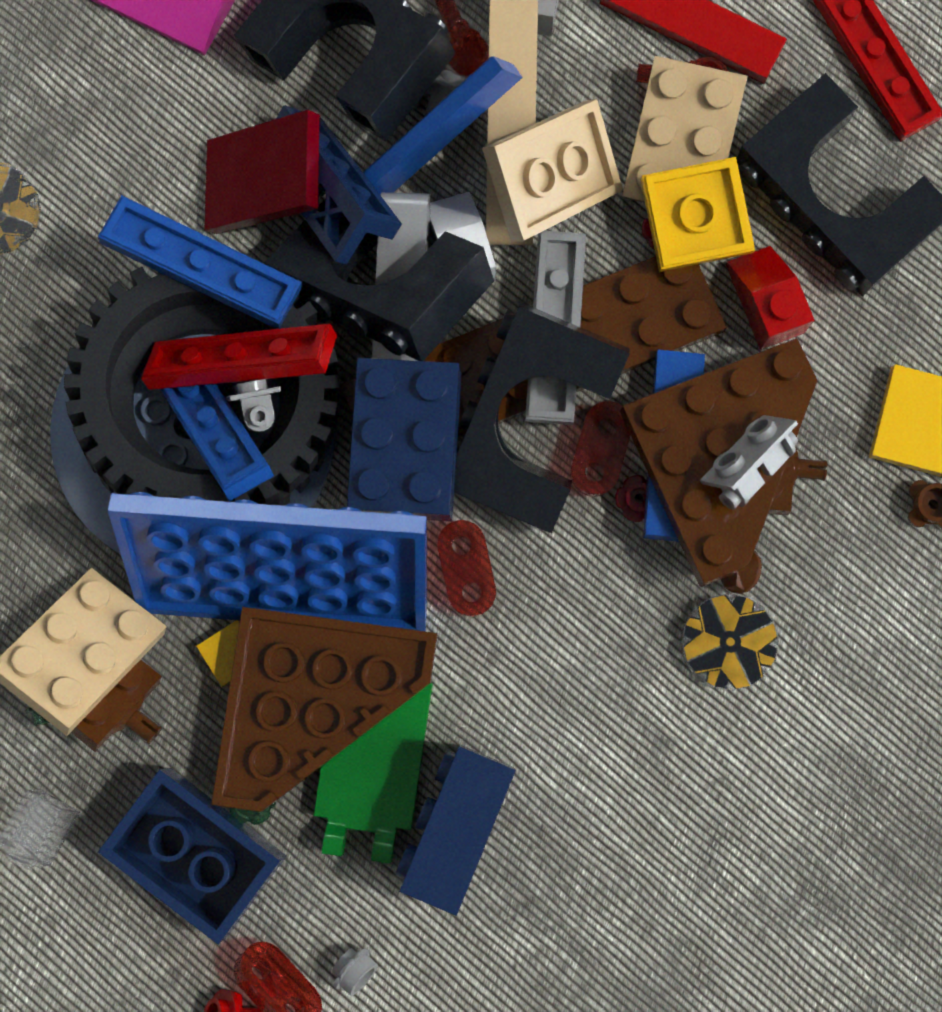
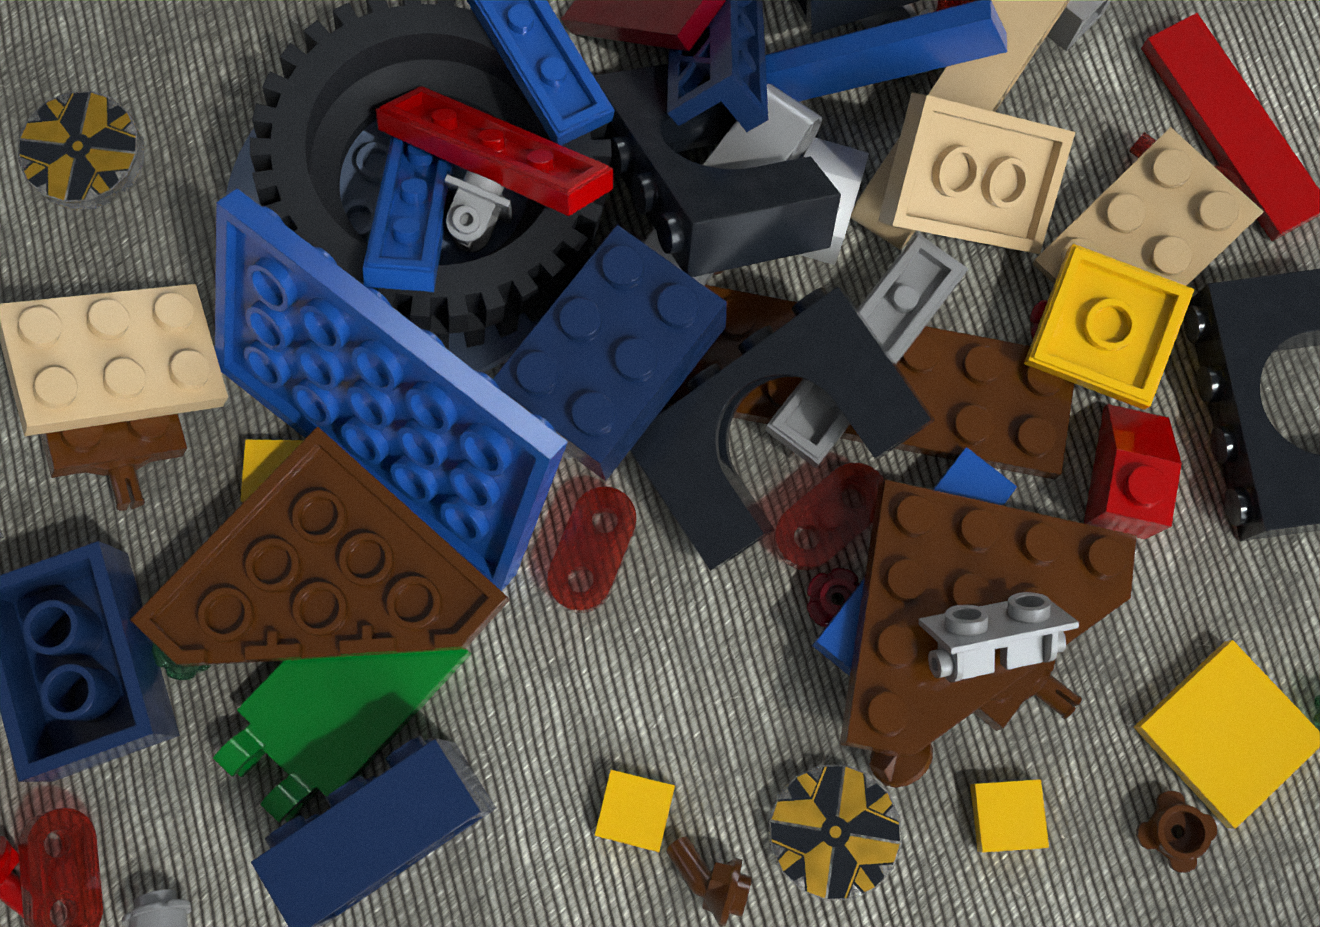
camera: 30 degrees right, 5 degrees down
(600, 710) = (634, 810): none -> yellow tile
(686, 720) = (723, 888): none -> reddish brown plate
(827, 561) = (1009, 815): none -> yellow tile

